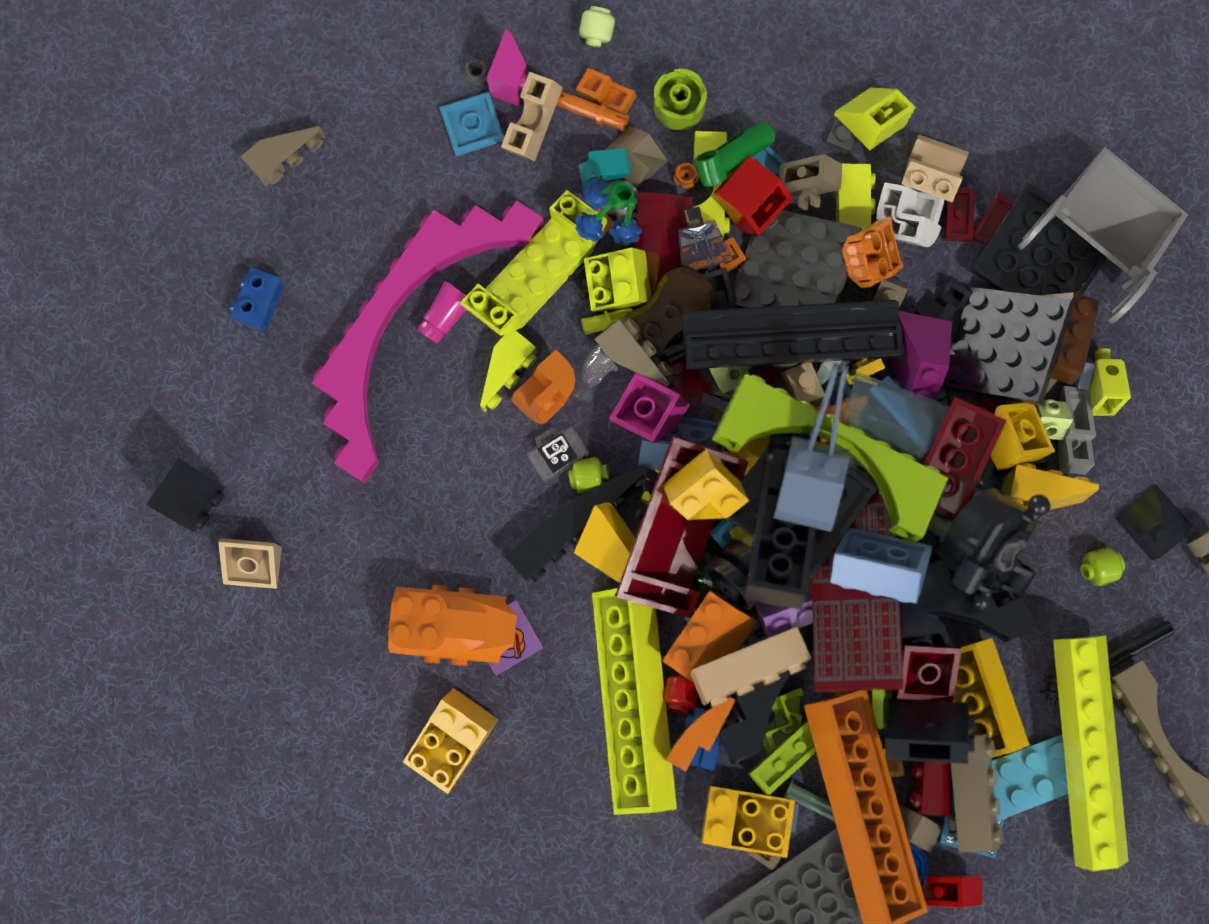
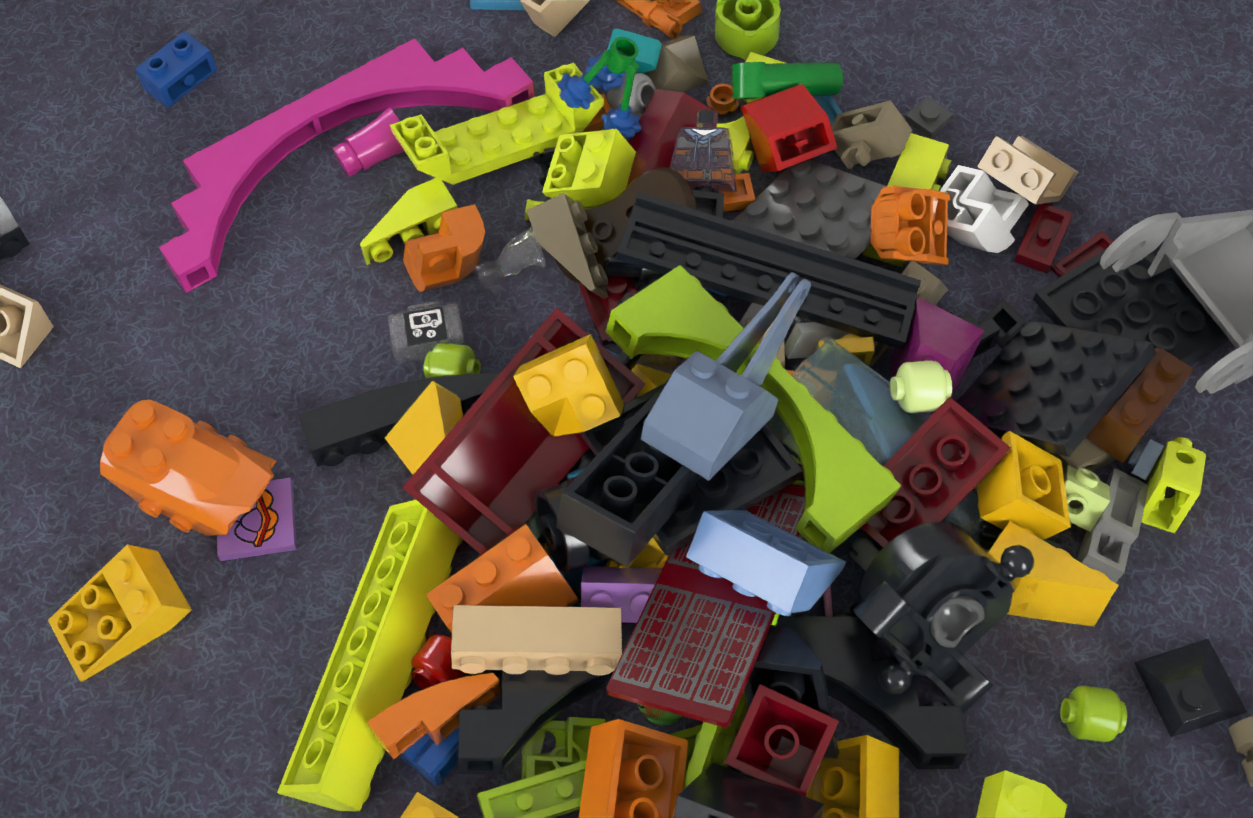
camera: 20 degrees right, 20 degrees down
(649, 409) = (566, 293): dark pink slope -> none
(876, 115) = (978, 103): neon yellow slope -> none
(932, 395) = (921, 386): none -> yellowish green head

